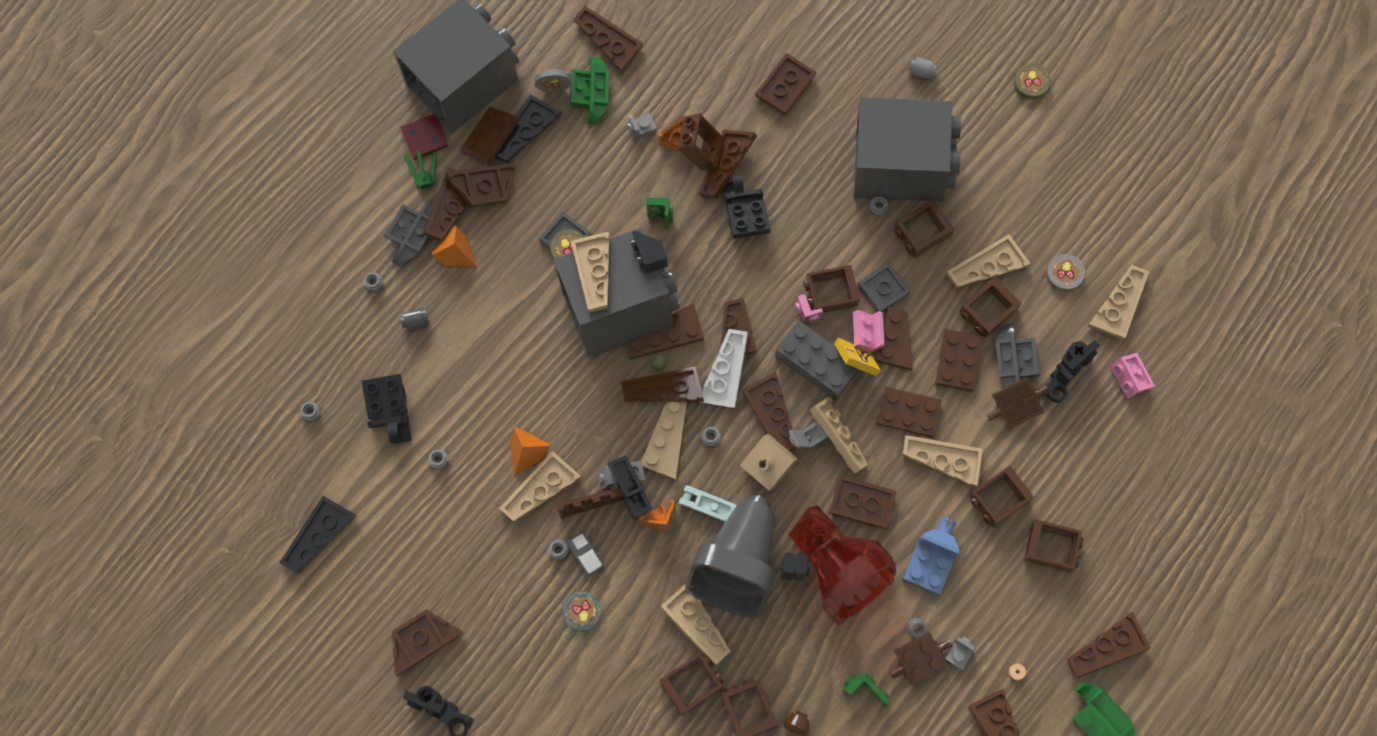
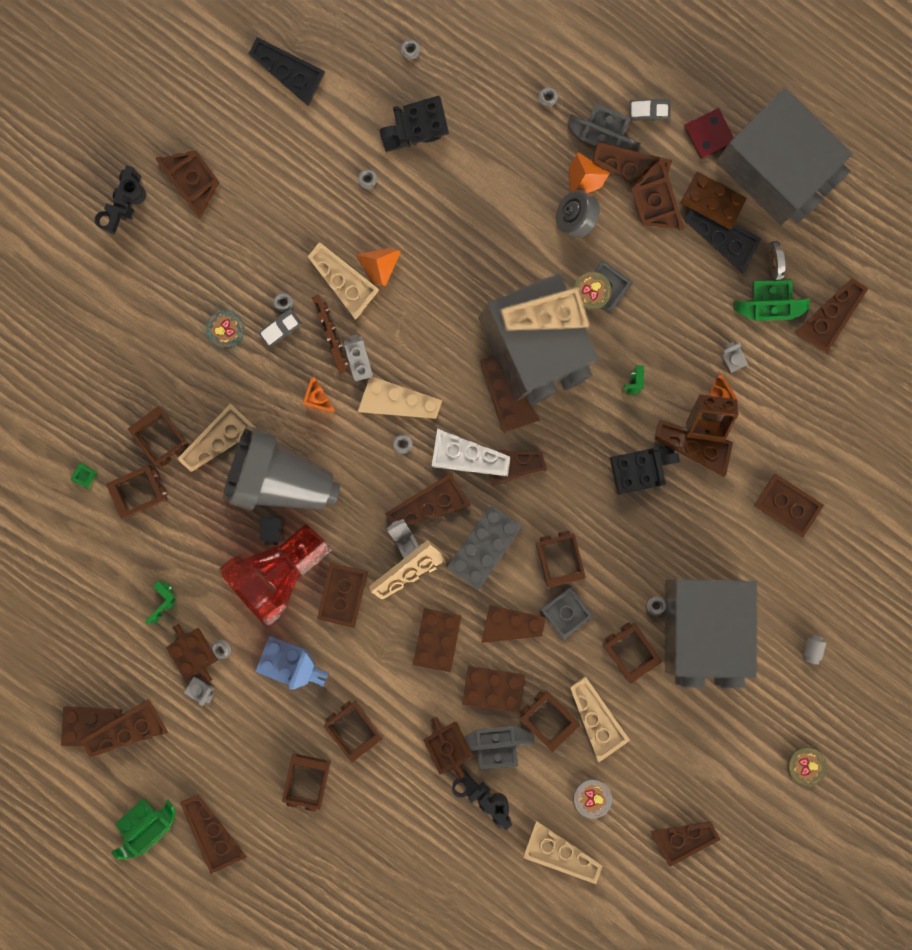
camera: 85 degrees right, 15 degrees up
(395, 188) = (650, 109): none -> slope
(414, 319) = (509, 142): dark grey brick -> none
(424, 179) = (661, 136): green plant -> none
(492, 257) = (577, 213): none -> dark grey wheel
(630, 487) = (341, 366): black slope -> none
(650, 252) = (568, 369): black slope -> none
(658, 362) = (476, 388): olive hinge -> none
(670, 386) = (450, 399): reddish brown wing -> none
(707, 504) = (333, 444): light aqua plate -> none
(769, 462) = (375, 502): tan brick -> none
(797, 723) = (126, 537): reddish brown cone -> none
(803, 308) = (539, 530): bright pink bracket -> none
(857, 357) = (486, 586): yellow tile -> none
(868, 330) = (517, 597): bright pink bracket -> none
(948, 458) = (389, 682): tan wing -> none
(1021, 672) = (189, 745): light nougat piece -> none
(1105, 190) = (685, 840): none -> reddish brown wing
(1132, 375) = (484, 864): bright pink bracket -> none

